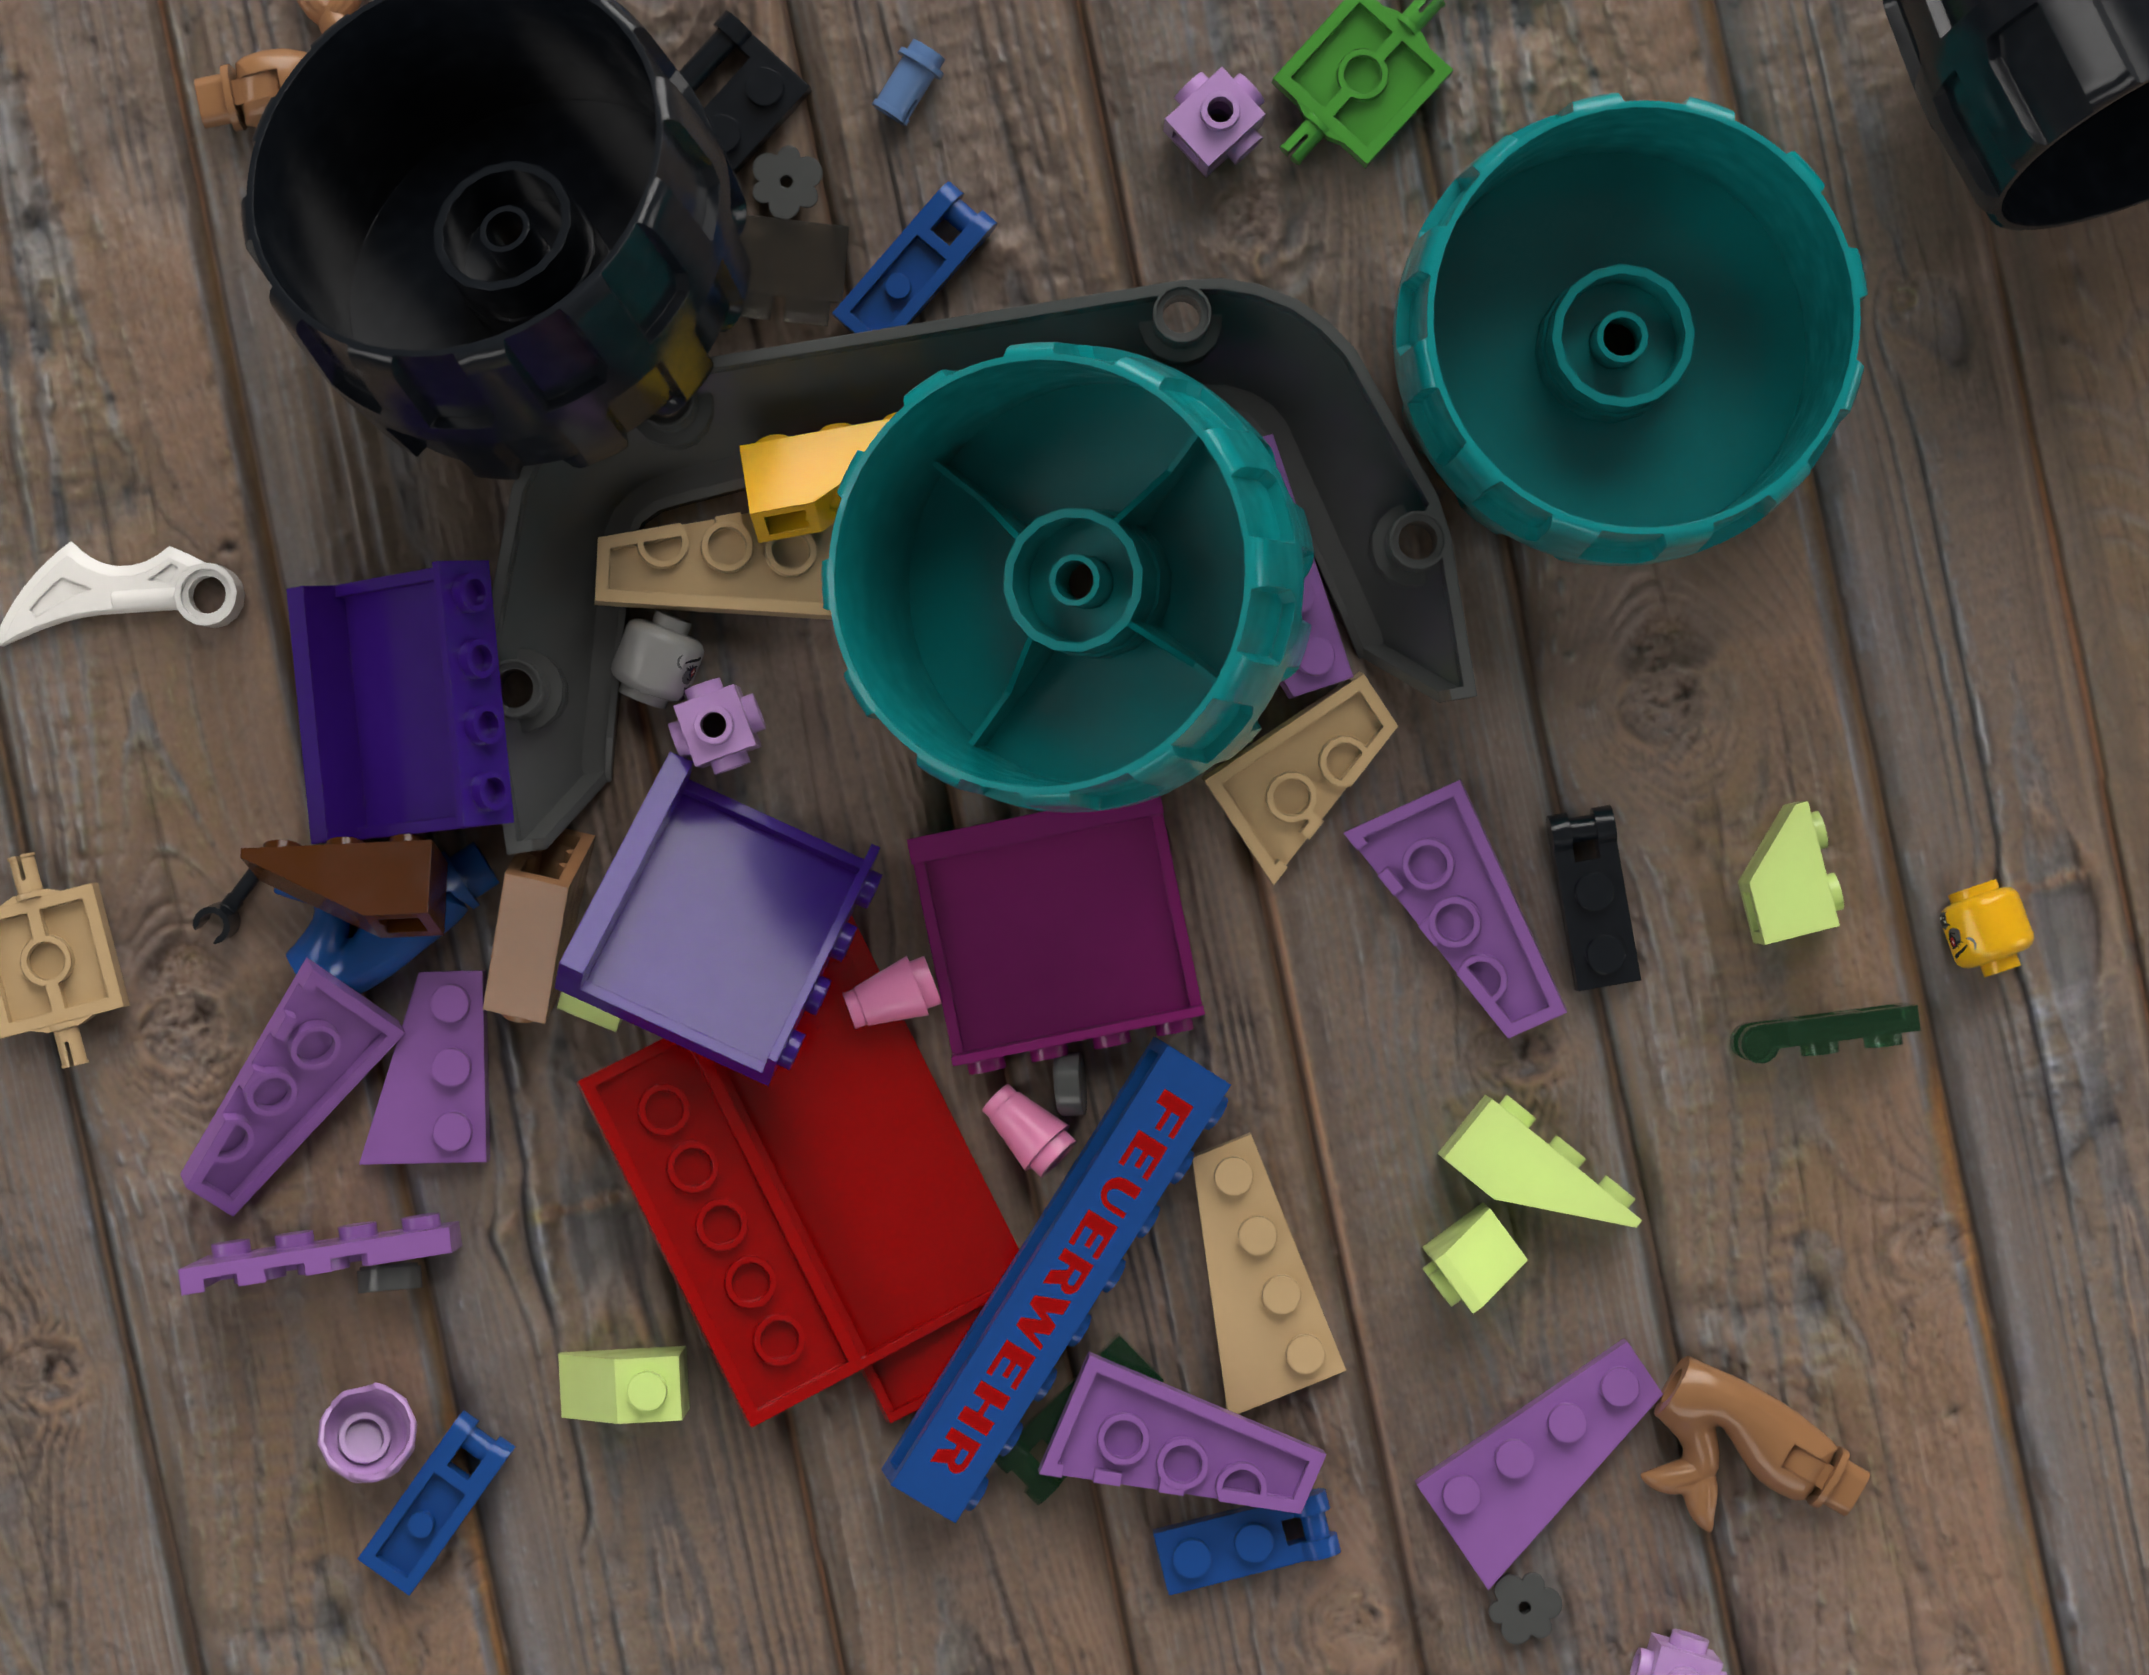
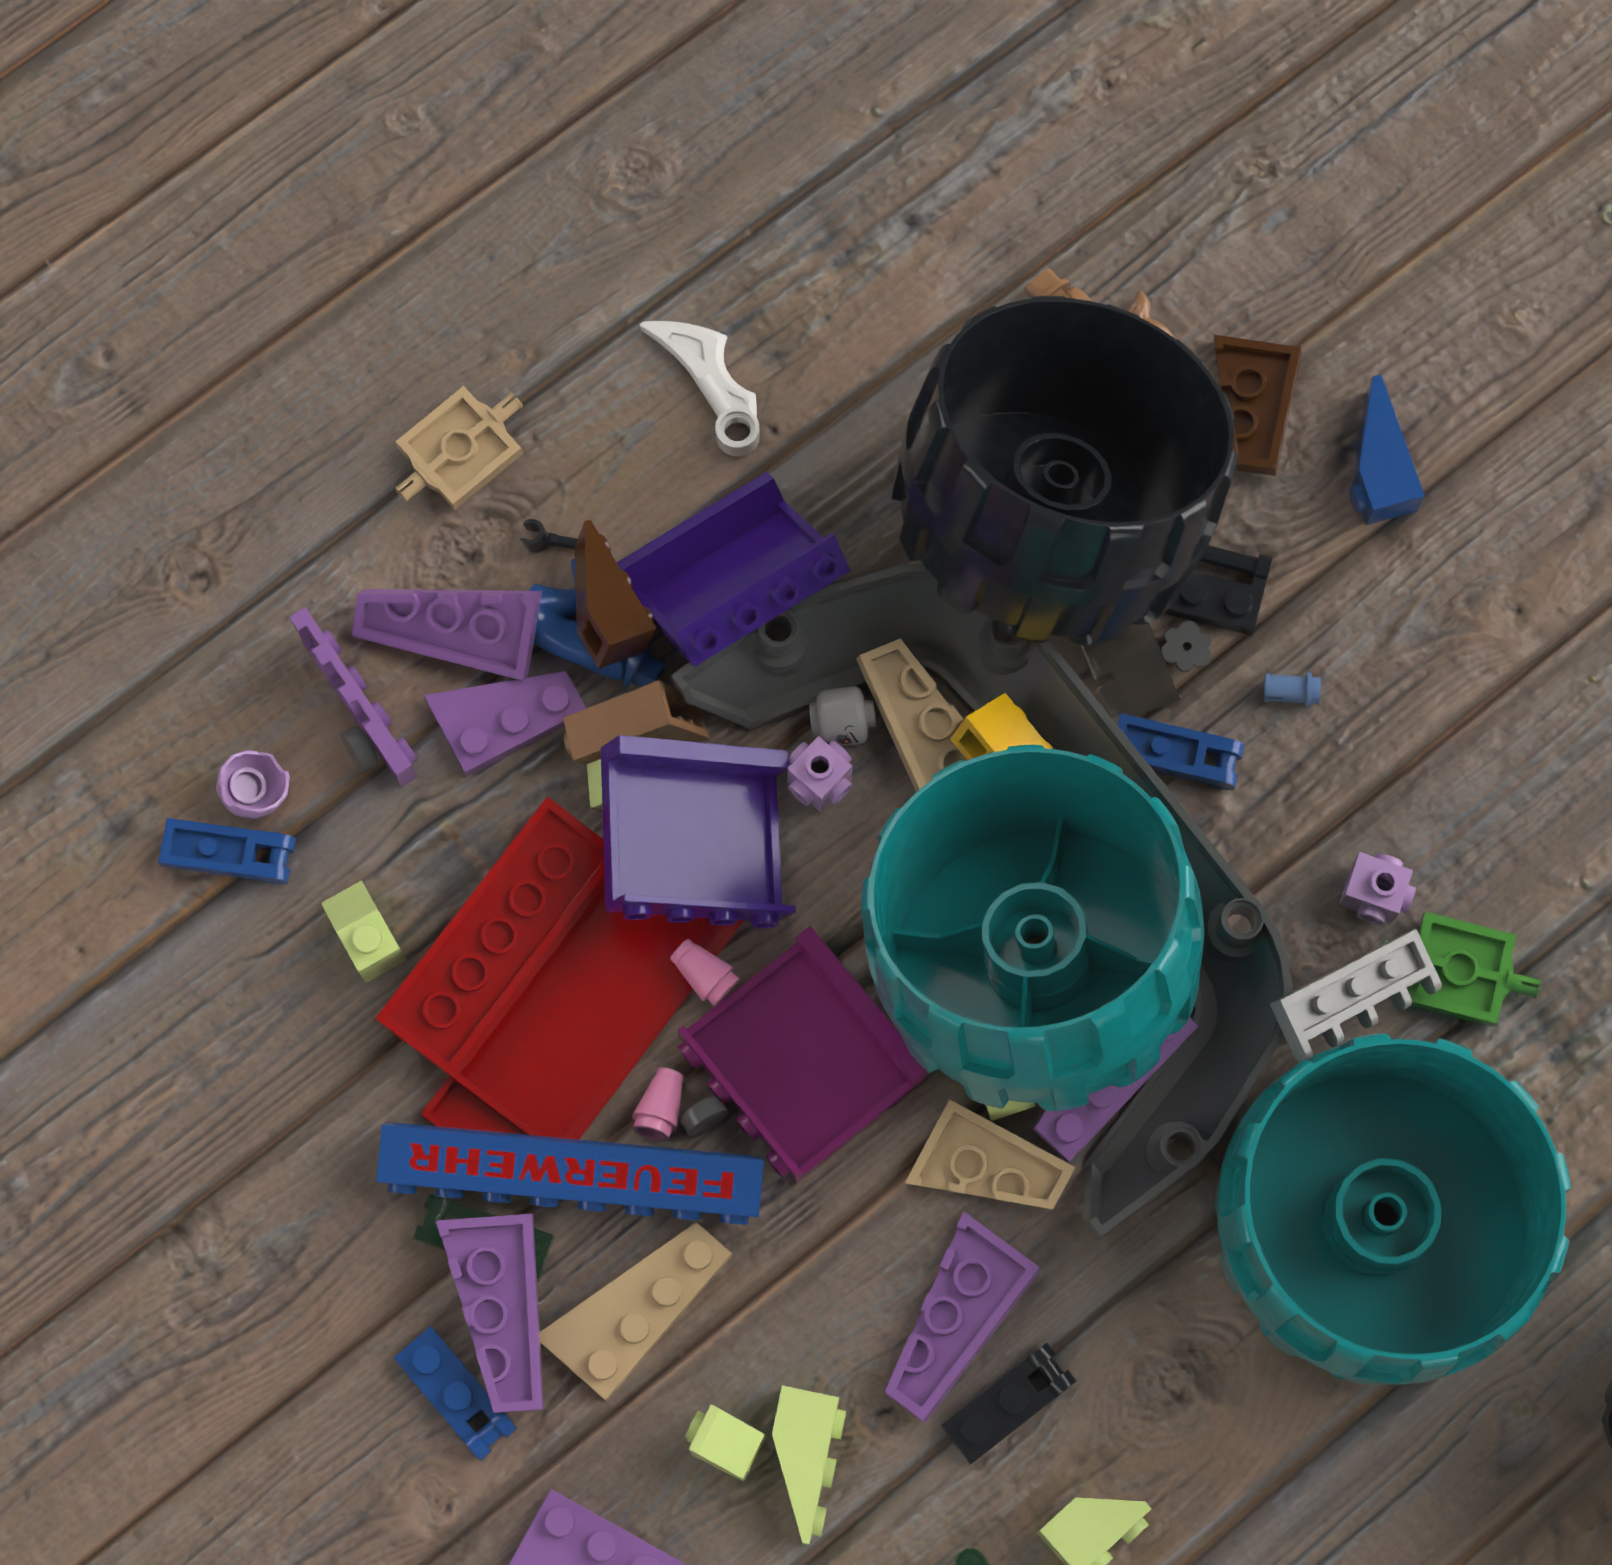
camera: 65 degrees right, 15 degrees down
(1337, 226) = (1354, 991): none -> light grey hinge

